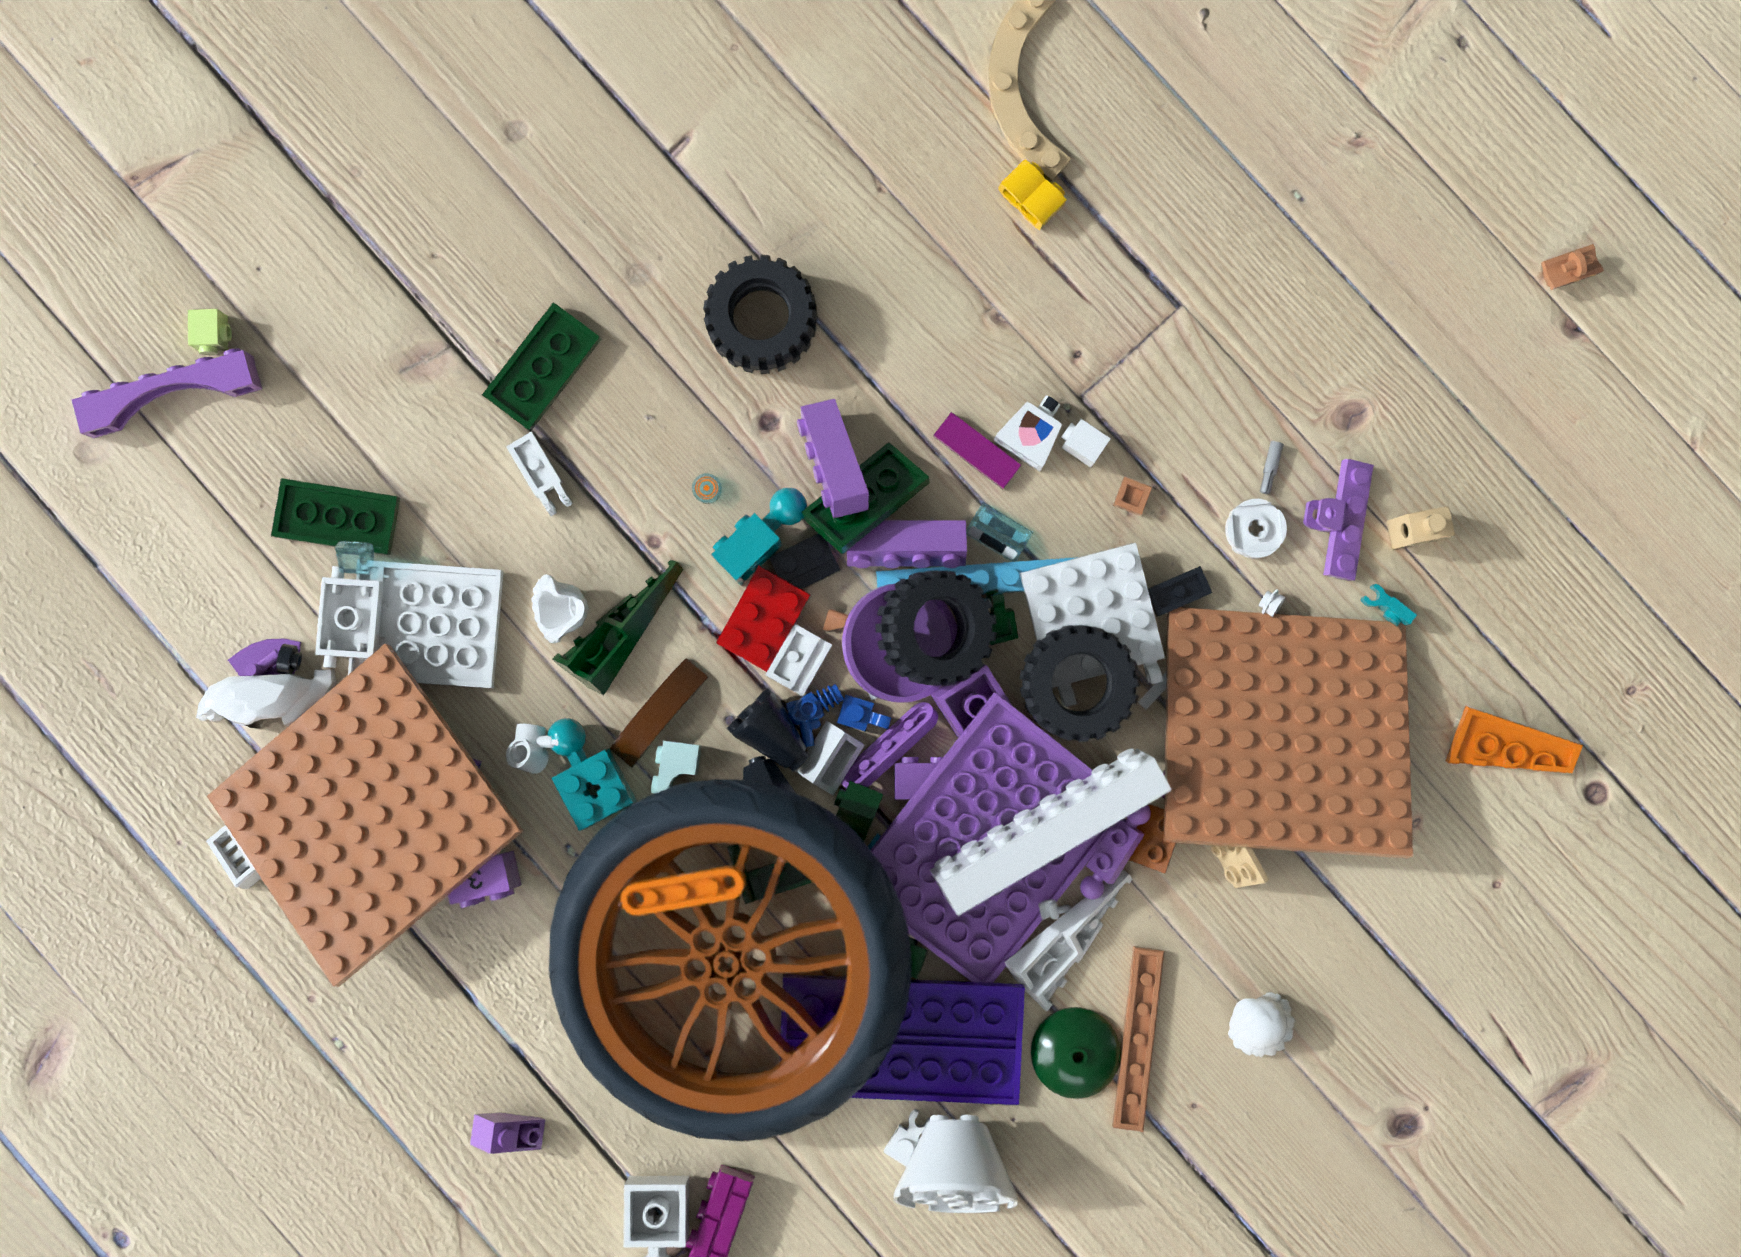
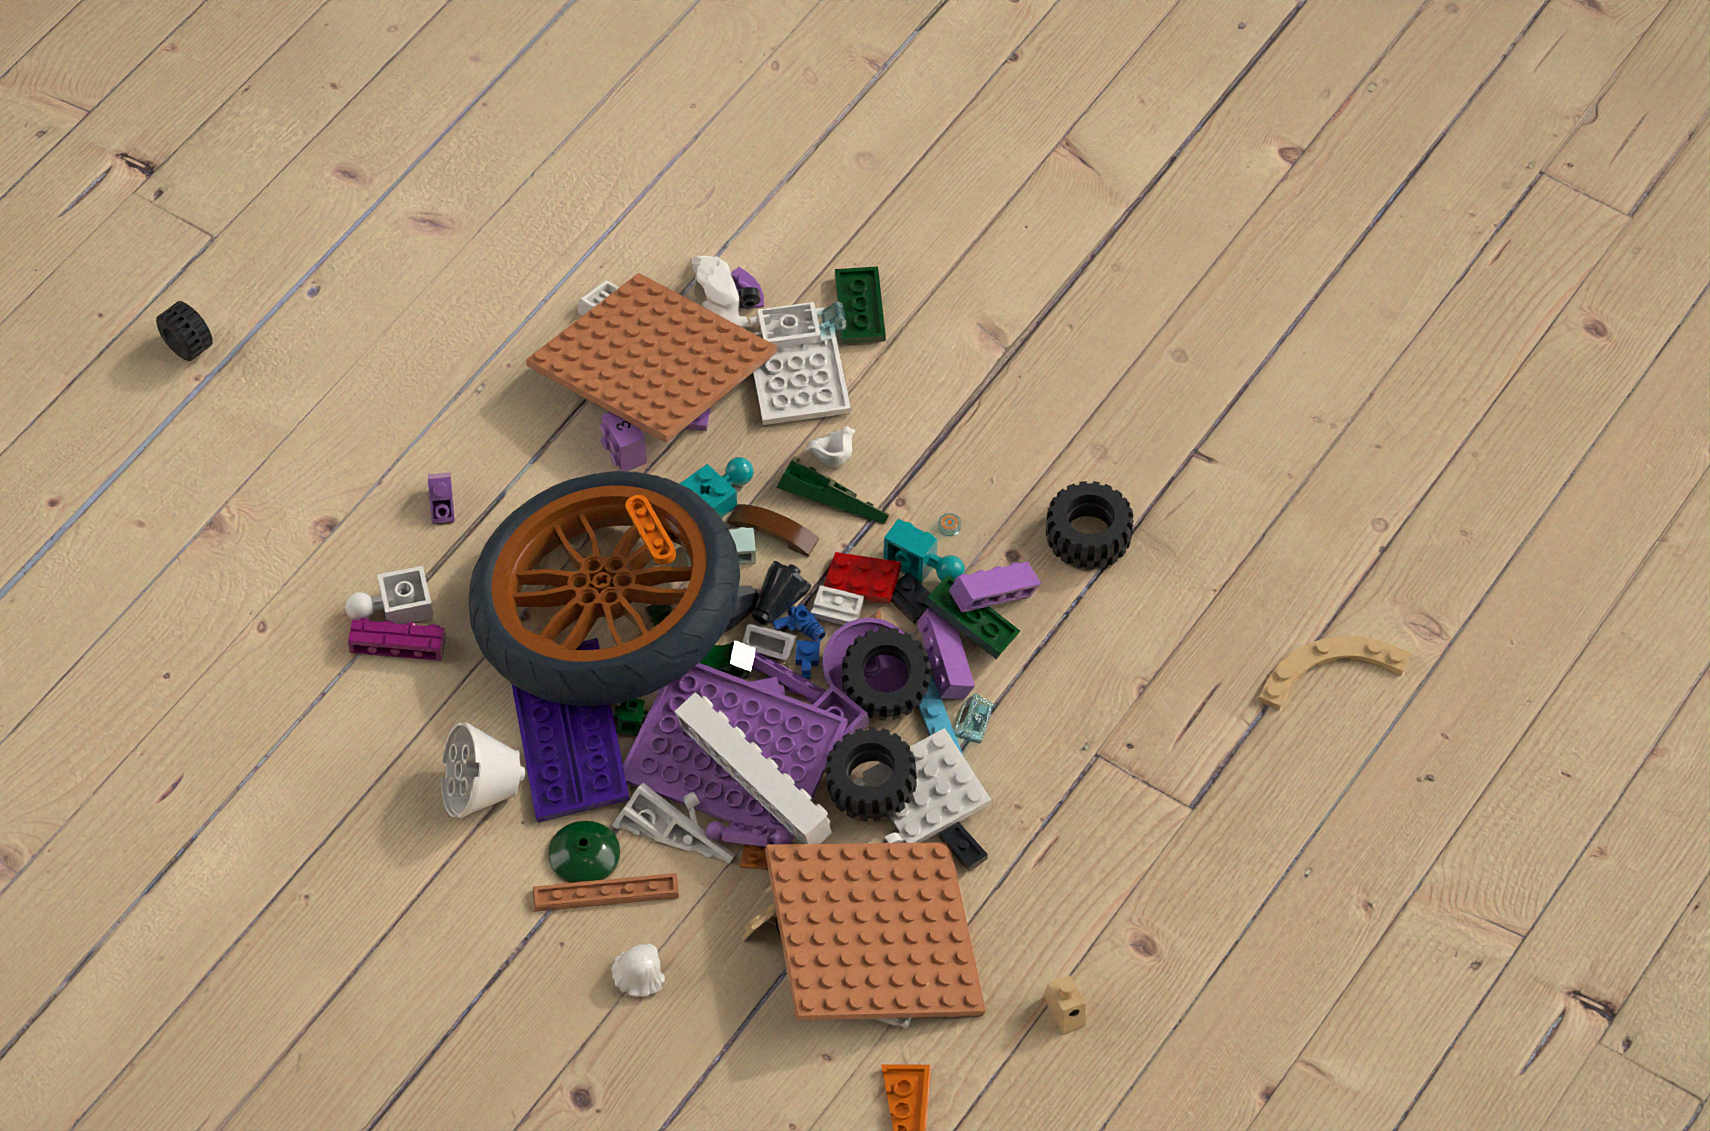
camera: 75 degrees right, 30 degrees down
(111, 409) = (896, 161): medium lavender arch -> none
(208, 331) = (970, 204): yellowish green brick -> none
(529, 748) = (723, 450): white piece -> none
(538, 470) = (929, 418): white hinge -> none
(541, 366) = (1008, 403): dark green plate -> none
(977, 450) = (1032, 691): magenta tile -> none
(1005, 618) = (906, 727): dark green plate -> none
(1031, 432) = (1056, 721): white torso -> none
(1032, 193) = (1243, 684): yellow brick -> none
(1084, 442) = (1059, 755): white brick -> none
(1132, 496) = (1028, 799): nougat plate -> none
(1245, 542) = (1026, 902): white plate -> none
(1271, 466) = (1082, 893): light grey piece -> none
(1271, 602) = (974, 913): white plate -> none
(1343, 519) = (1056, 950): medium lavender plate -> none
(1393, 609) = (993, 998): teal plate -> none
(1571, 267) = (1313, 1070): nougat hips -> none

